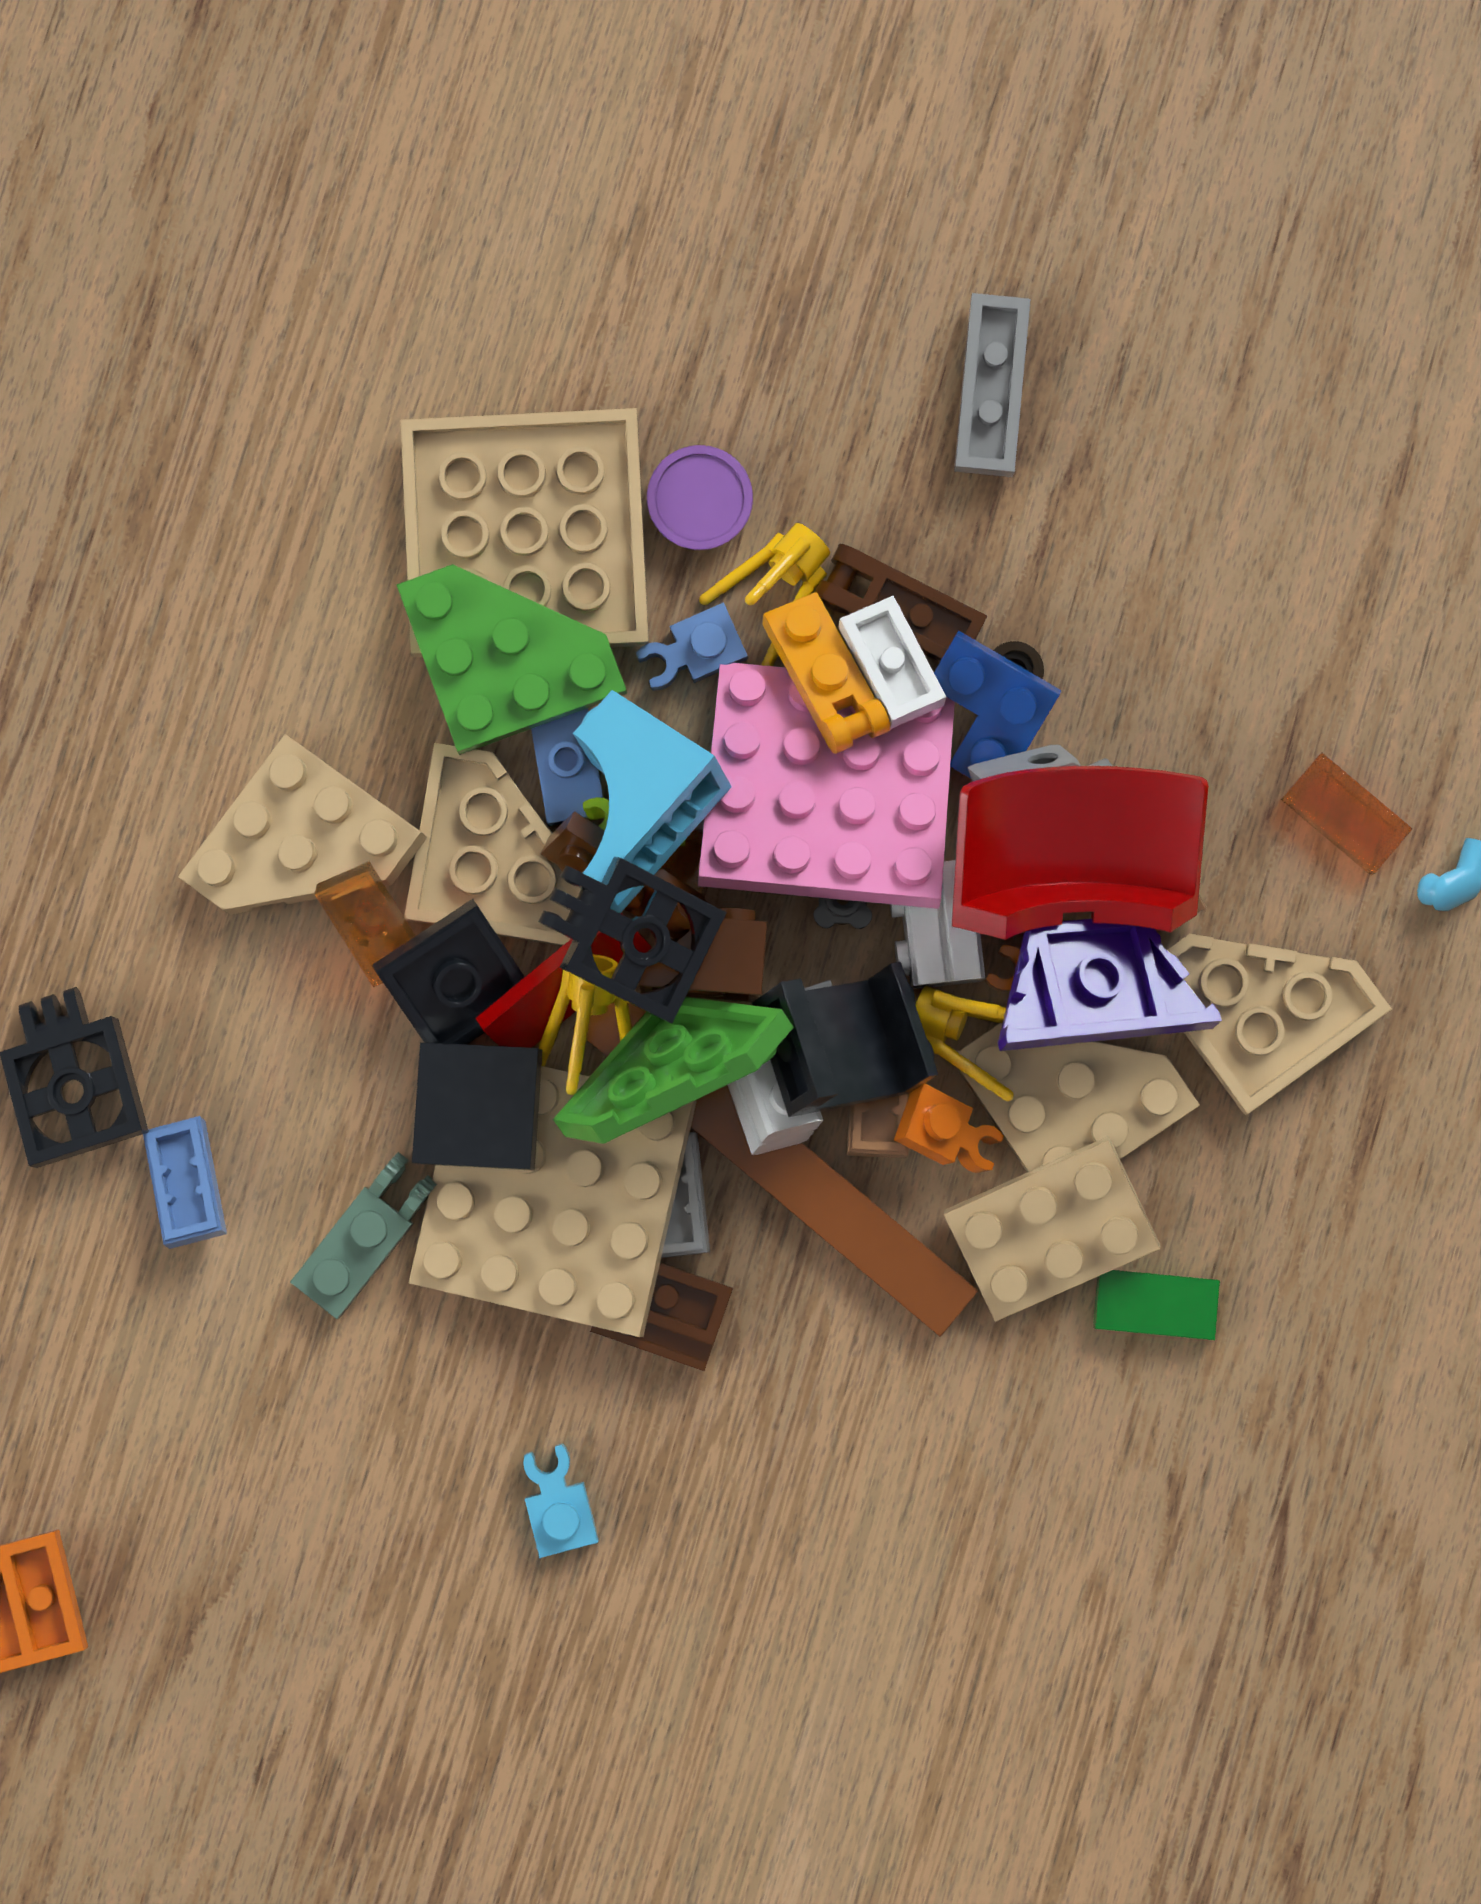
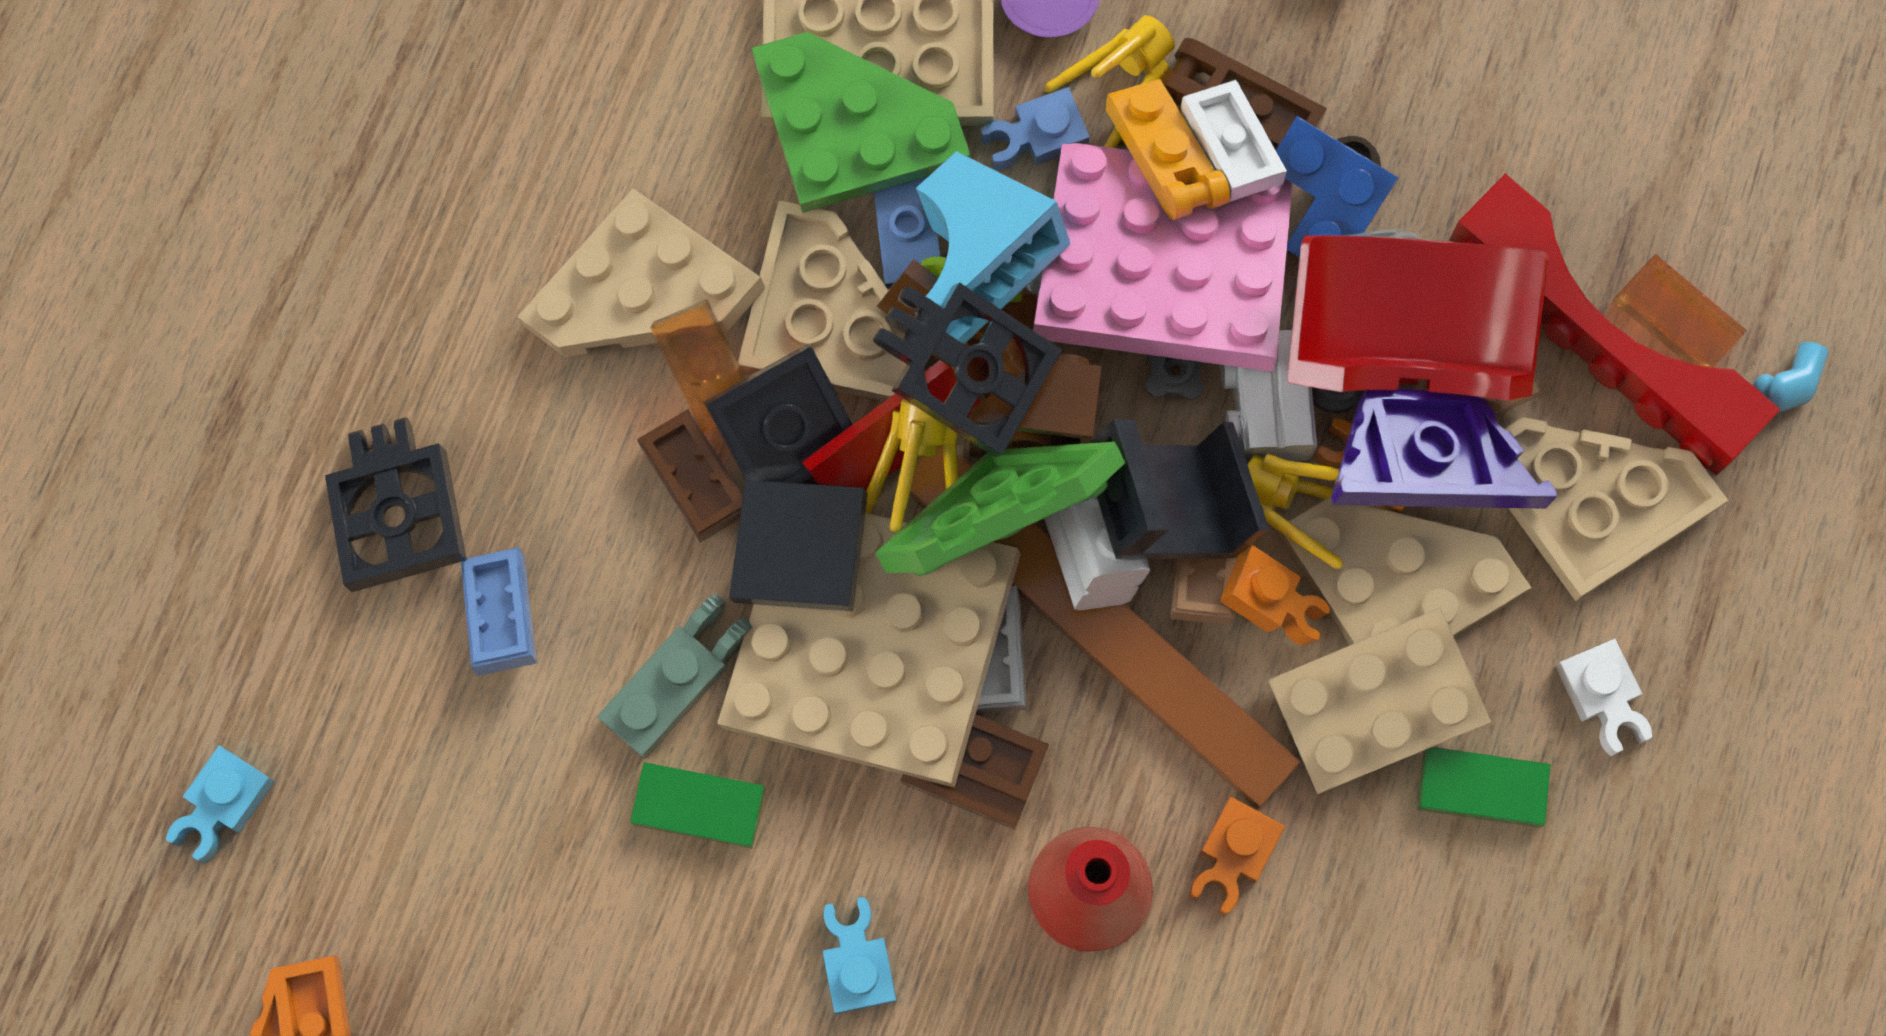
camera: 10 degrees right, 10 degrees down
(367, 1033) = (693, 475): none -> reddish brown plate
(394, 1363) = (698, 805): none -> green tile
(773, 1395) = (1087, 913): none -> red cone
(922, 1374) = (1239, 847): none -> orange plate
(1270, 1198) = (1602, 686): none -> white plate
(1371, 915) = (1698, 406): none -> red arch

